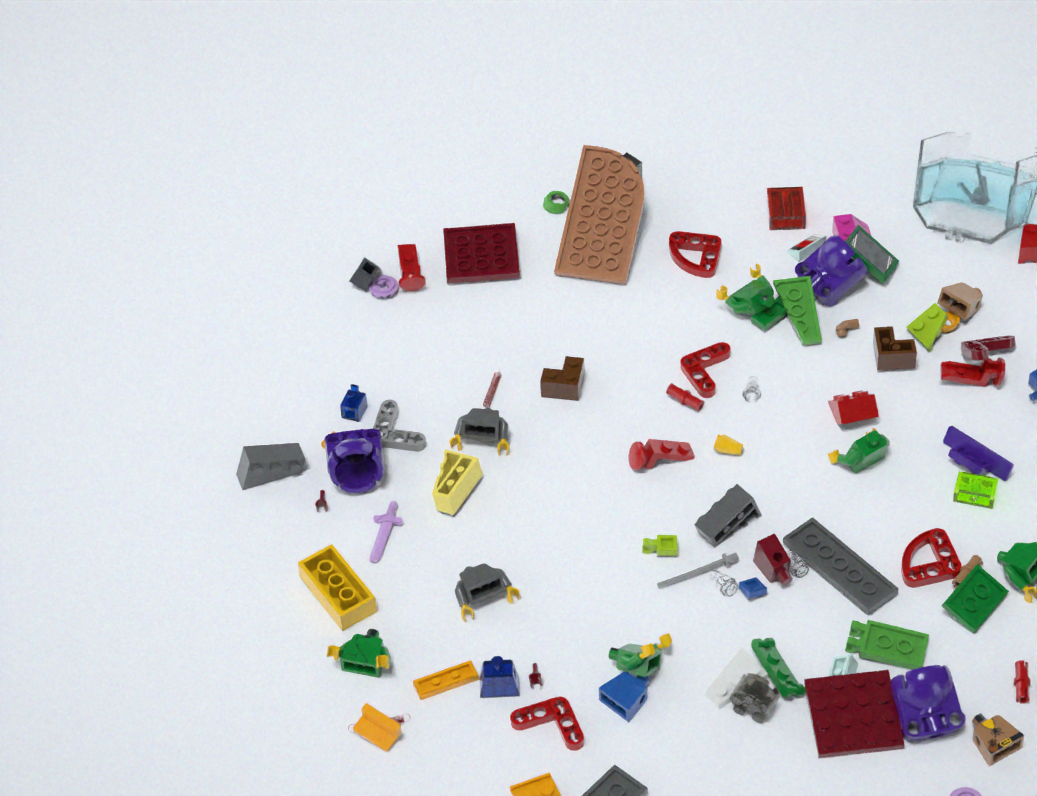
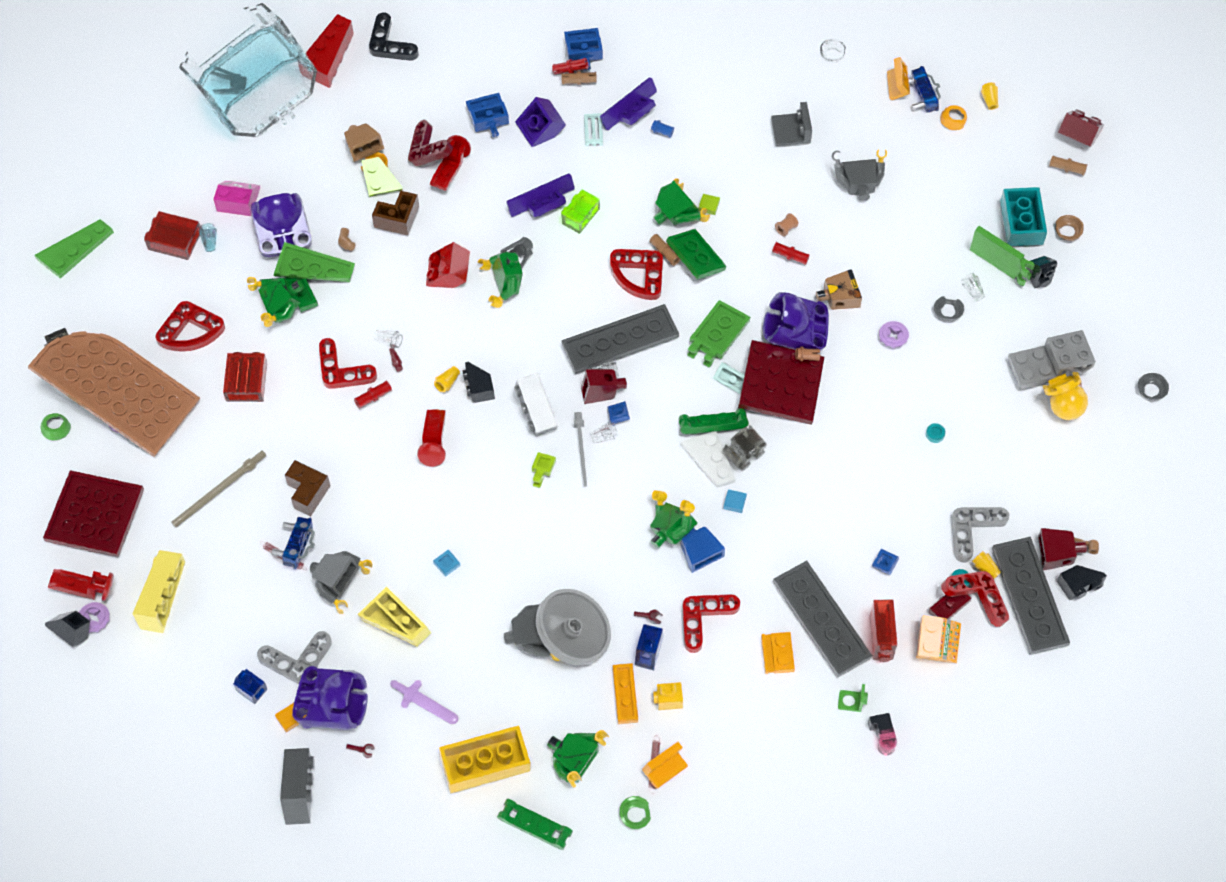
camera: 75 degrees left, 15 degrees up
(288, 647) = (535, 824): none -> green plate
(319, 712) = (631, 802): none -> bright green piece
(420, 315) = (159, 591): none -> light yellow wedge
(452, 711) = (668, 696): none -> yellow brick
(492, 610) = (573, 627): none -> light grey dish
(506, 390) = (297, 542): none -> clear blue piece
(531, 505) = (446, 563): none -> dark azure tile
(572, 336) = (248, 465): none -> dark tan bar
(661, 303) = (245, 377): none -> clear red brick
(694, 712) = (735, 501): none -> dark azure tile
(731, 403) = (396, 361): none -> dark red piece
(732, 469) = (480, 383): none -> black slope
(736, 151) = (73, 249): none -> bright green wing
(797, 232) = (208, 236): none -> clear light blue cone
(807, 246) = (228, 236): light aqua slope -> none
(872, 253) = (274, 185): tile -> none
(890, 716) = (807, 354): none -> nougat pin
(907, 456) = (521, 247): none -> dark grey plant

